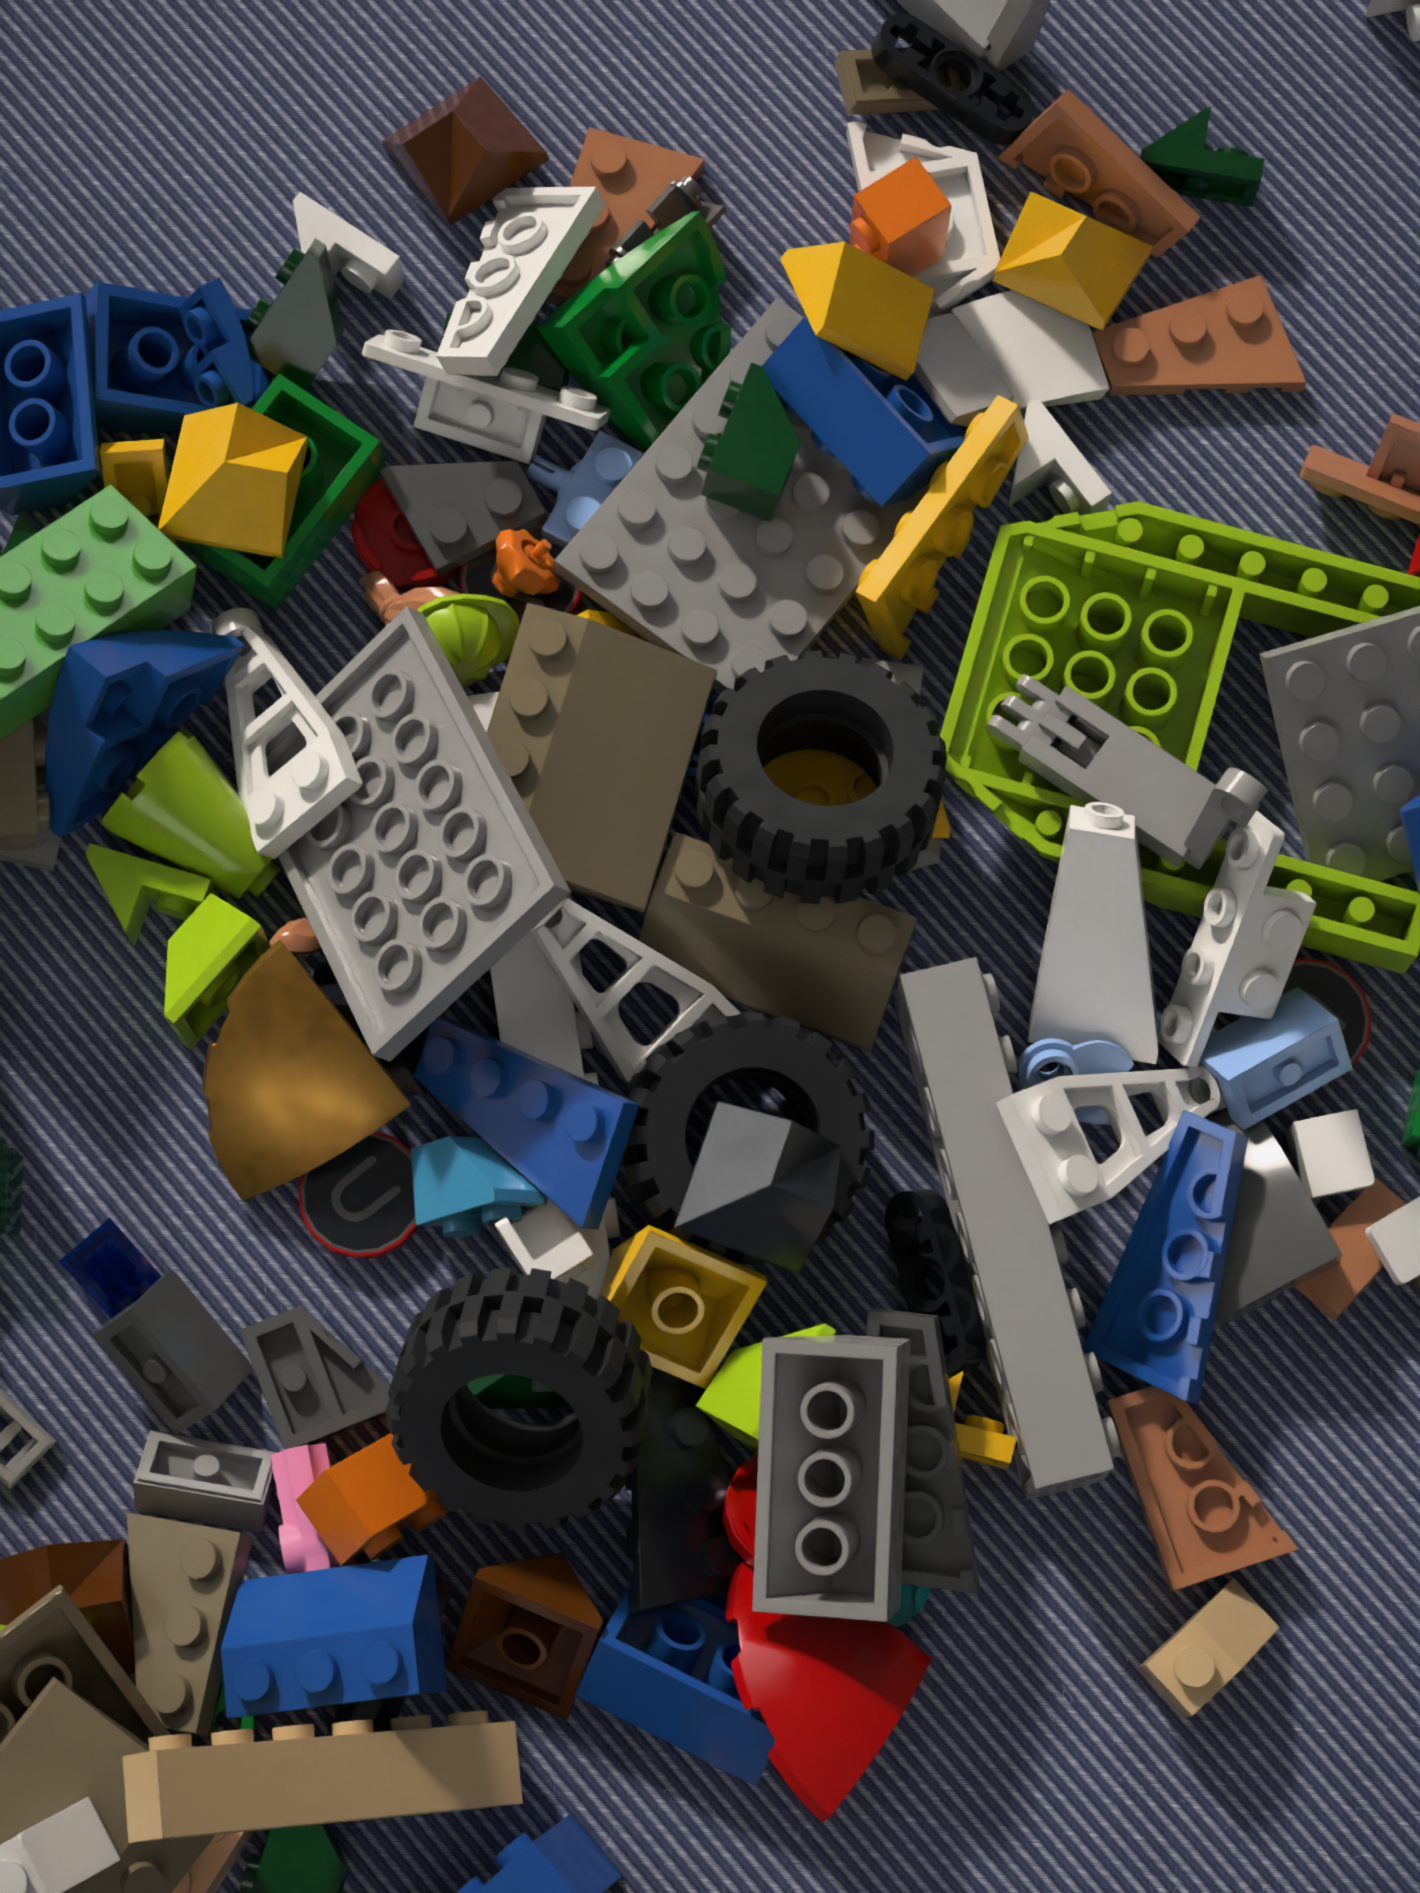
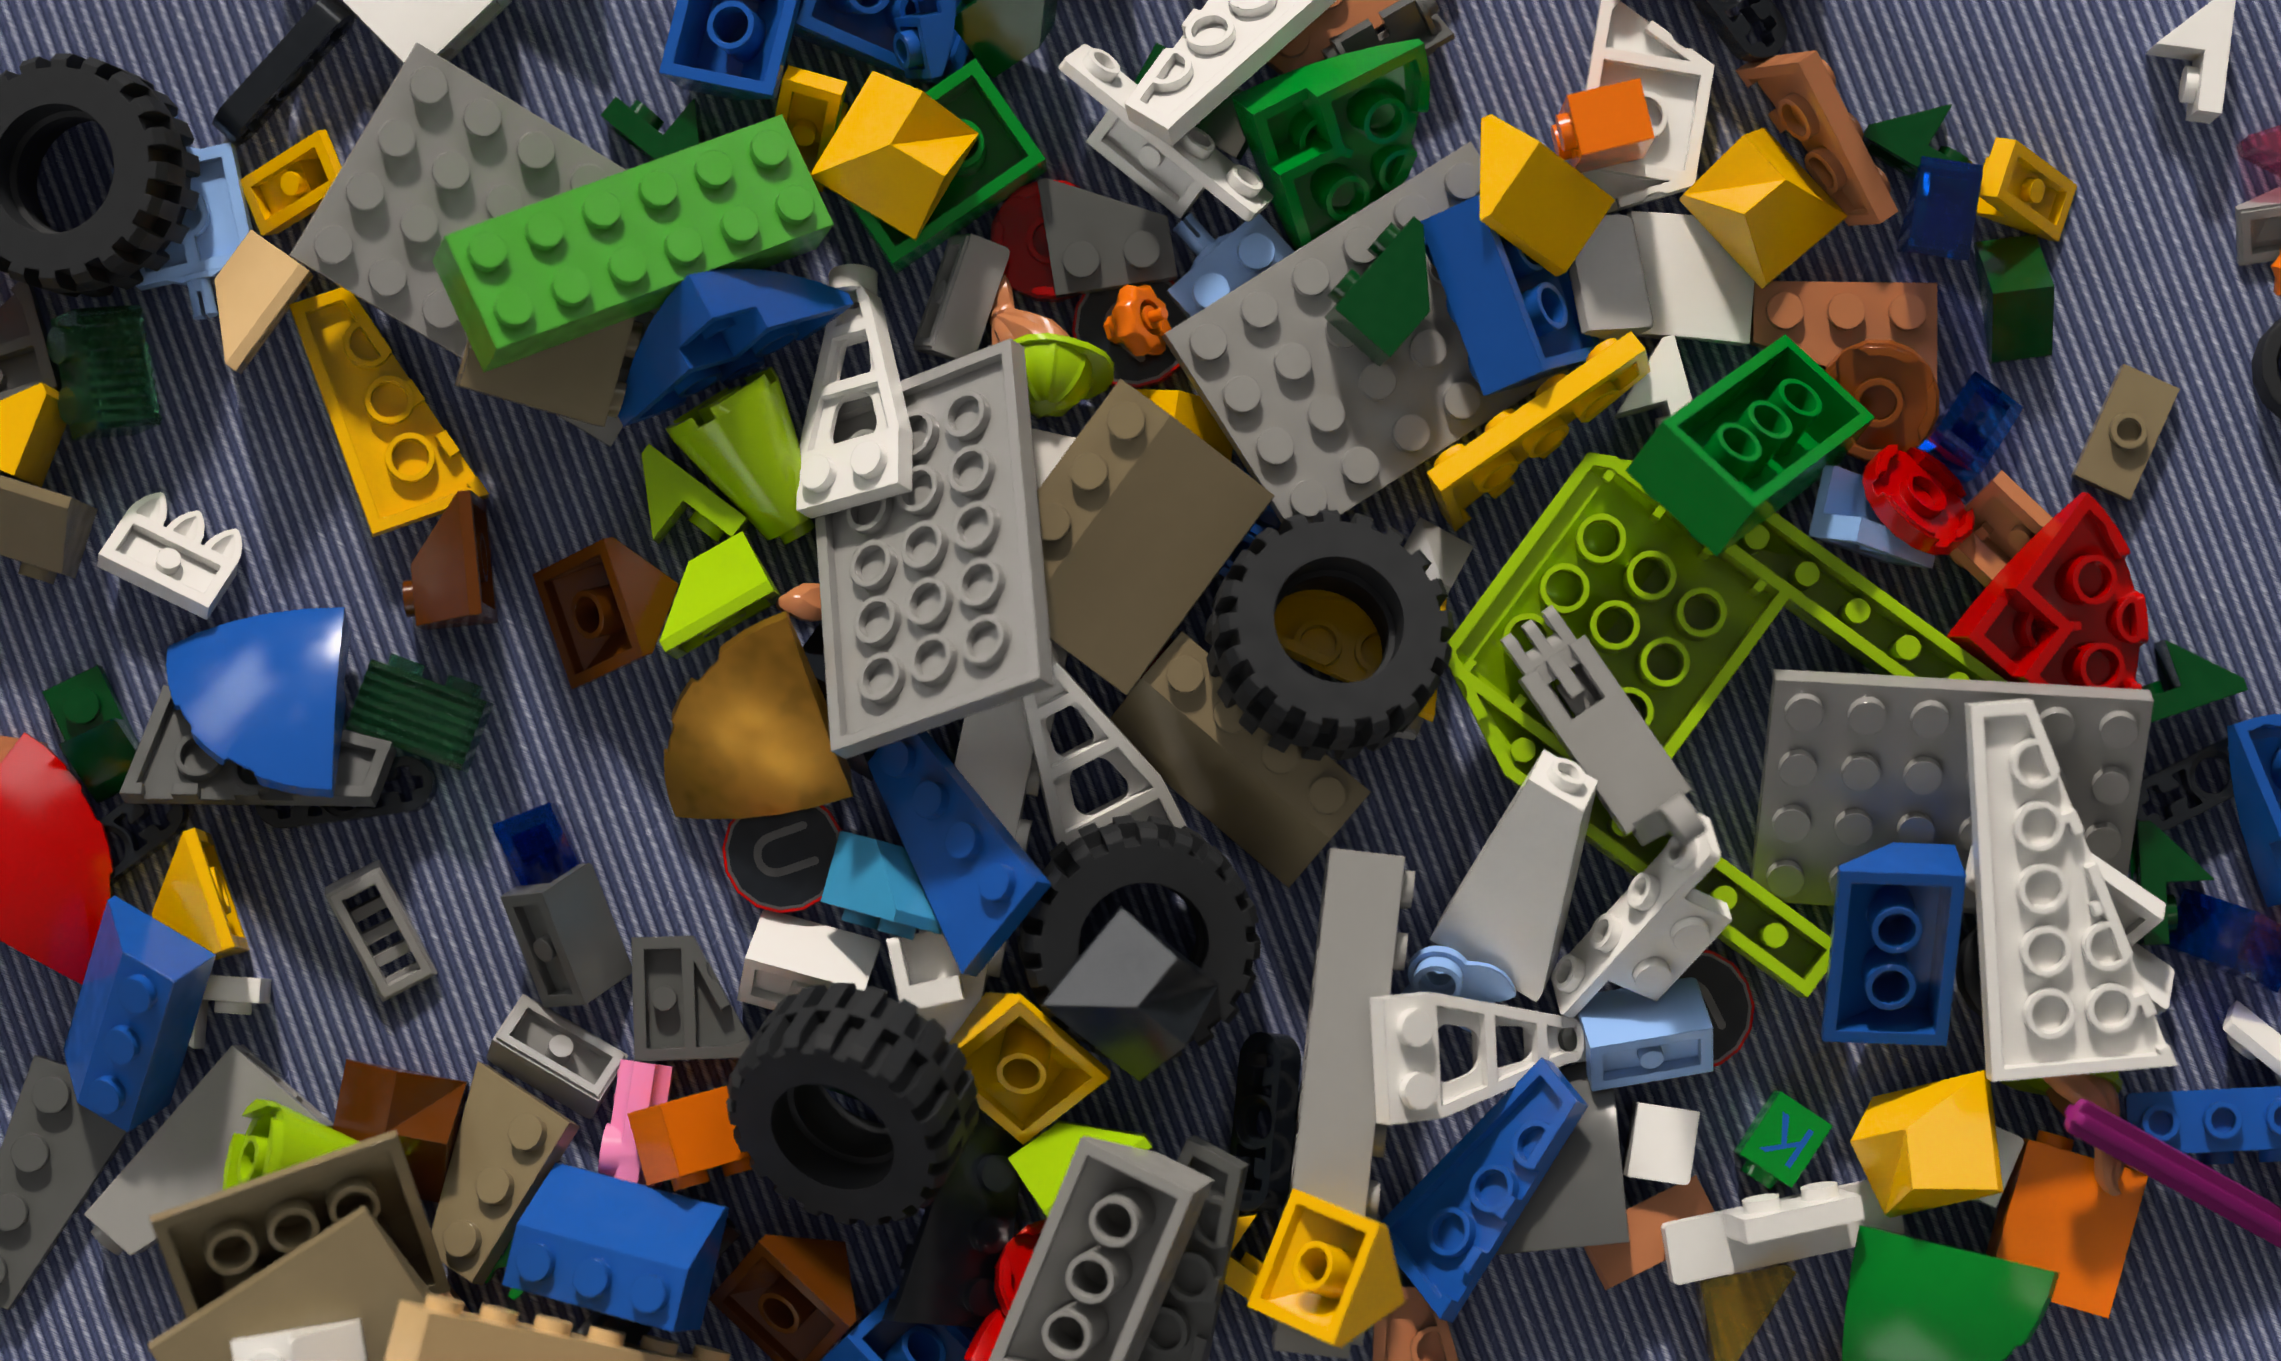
camera: 25 degrees right, 10 degrees up
(98, 1018) = (604, 608): none -> reddish brown slope
(345, 603) = (961, 297): none -> light grey slope
(400, 1286) = (799, 954): none -> white panel
(1060, 1380) = (1327, 1271): none -> yellow slope
(1150, 458) = (1749, 444): none -> green brick
(1241, 202) = (1941, 210): none -> clear blue slope
(1250, 396) = (1894, 388): none -> dark orange tile
(1286, 506) = (1849, 522): none -> light blue panel
(1304, 165) = (2024, 191): none -> yellow slope
(1327, 463) = (1918, 499): none -> red tile
(1340, 265) = (2015, 298): none -> dark green slope
(1345, 396) = (1972, 427): none -> clear blue slope

